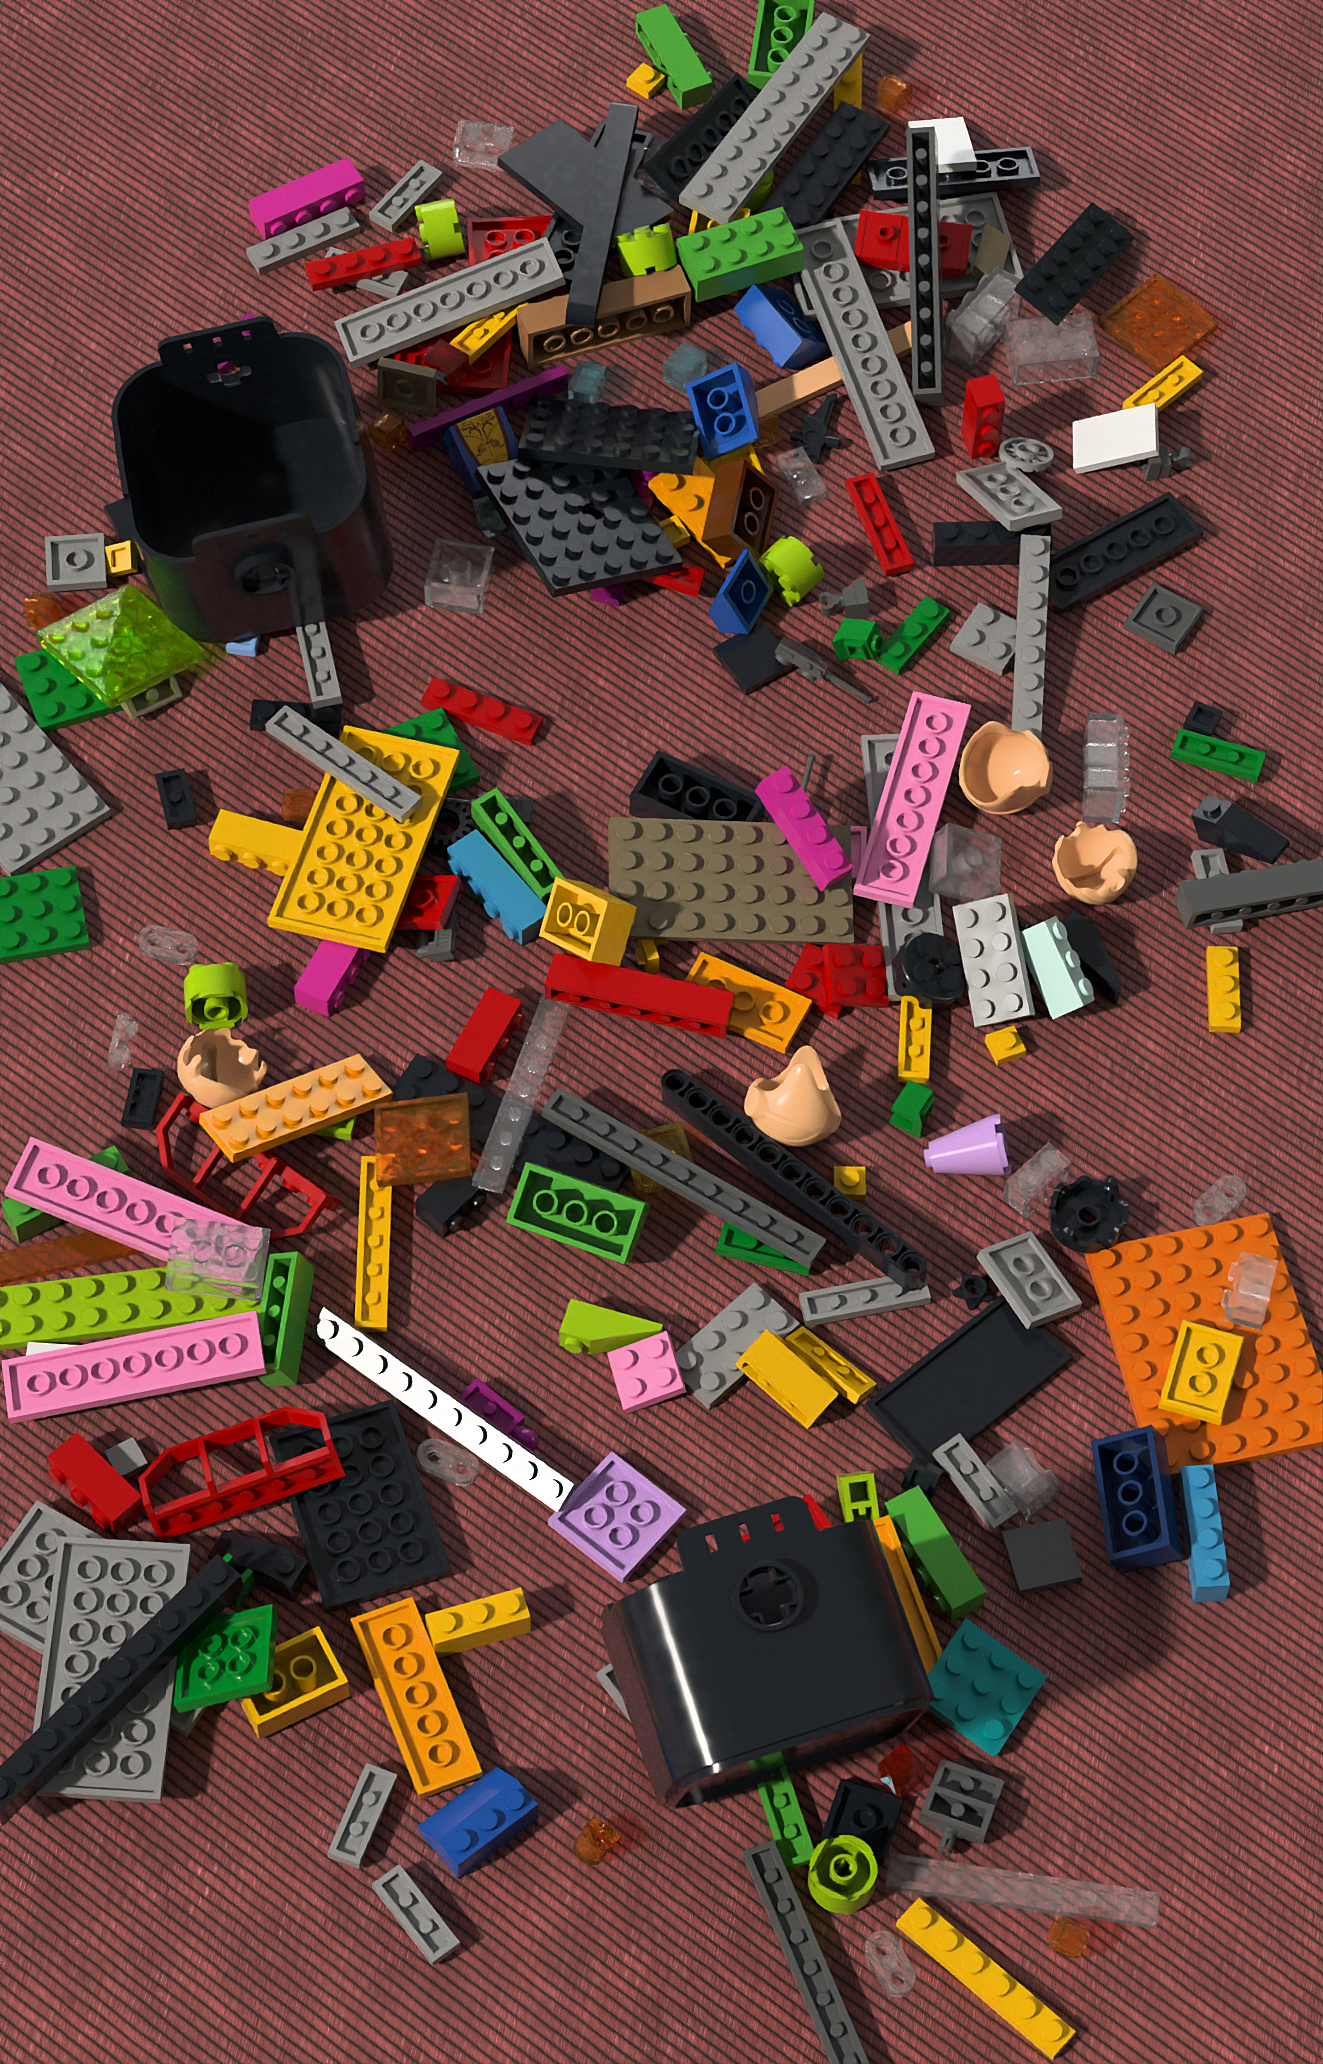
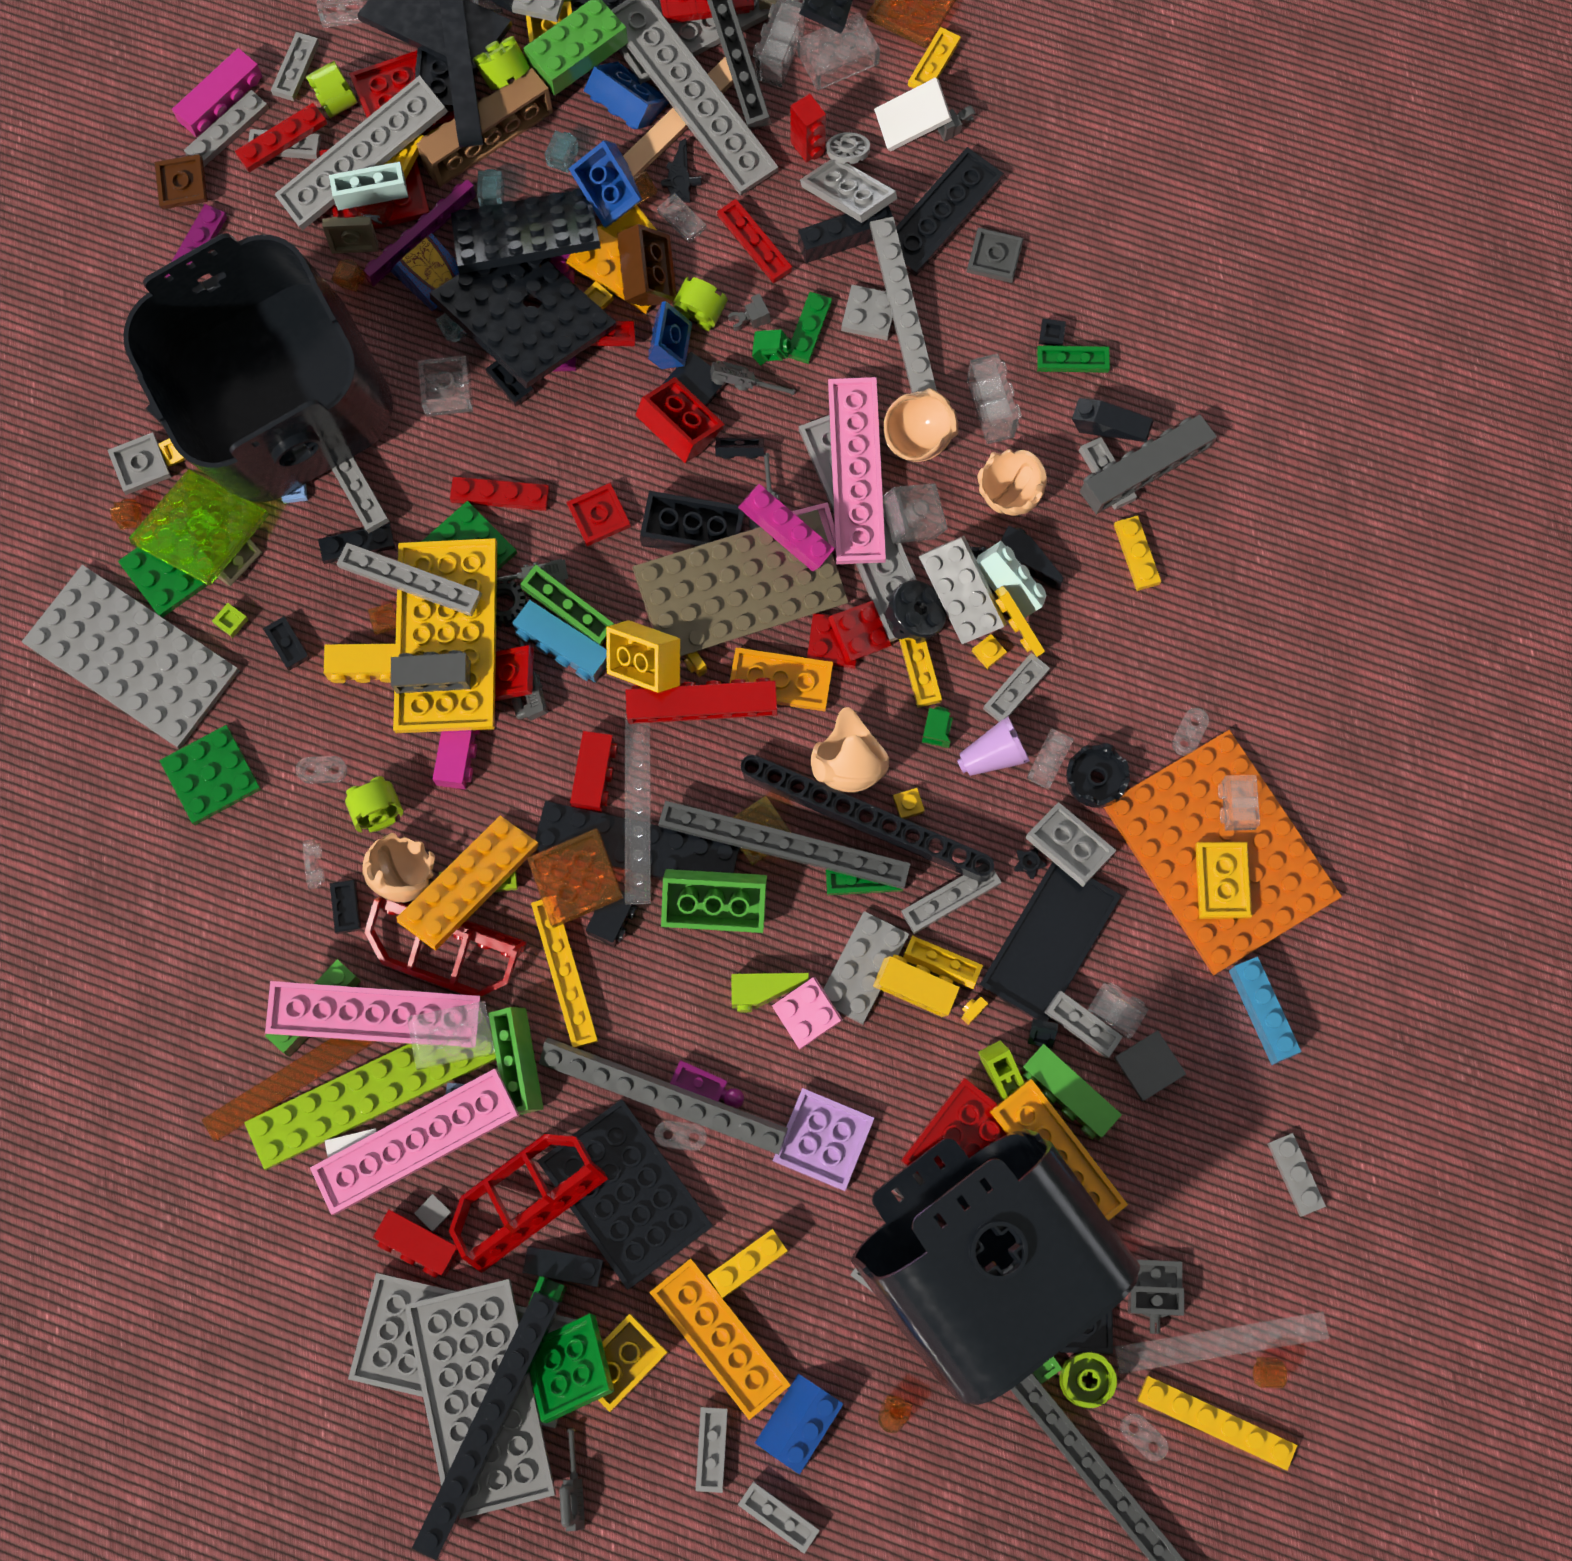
camera: 15 degrees left, 15 degrees up
(120, 756) = (230, 620): none -> lime plate
(179, 1813) = (572, 1494): none -> dark grey piece
(231, 280) = (181, 181): none -> reddish brown plate
(333, 867) = (430, 672): none -> dark grey brick
(446, 335) = (368, 186): none -> light aqua brick
(535, 595) = (508, 384): none -> black plate
(590, 764) = (598, 514): none -> red plate
(721, 688) = (679, 419): none -> red slope
(772, 736) = (739, 446): none -> black plate
(848, 1428) = (973, 1009): none -> yellow plate
(982, 1687) = (1140, 1191): teal plate -> none
(1025, 1091) = (1016, 688): none -> light grey plate
(1048, 1015) = (1018, 622): none -> yellow plate
(1136, 1499) = (1209, 1002): dark blue brick -> none
(1180, 1731) = (1296, 1175): none -> light grey plate

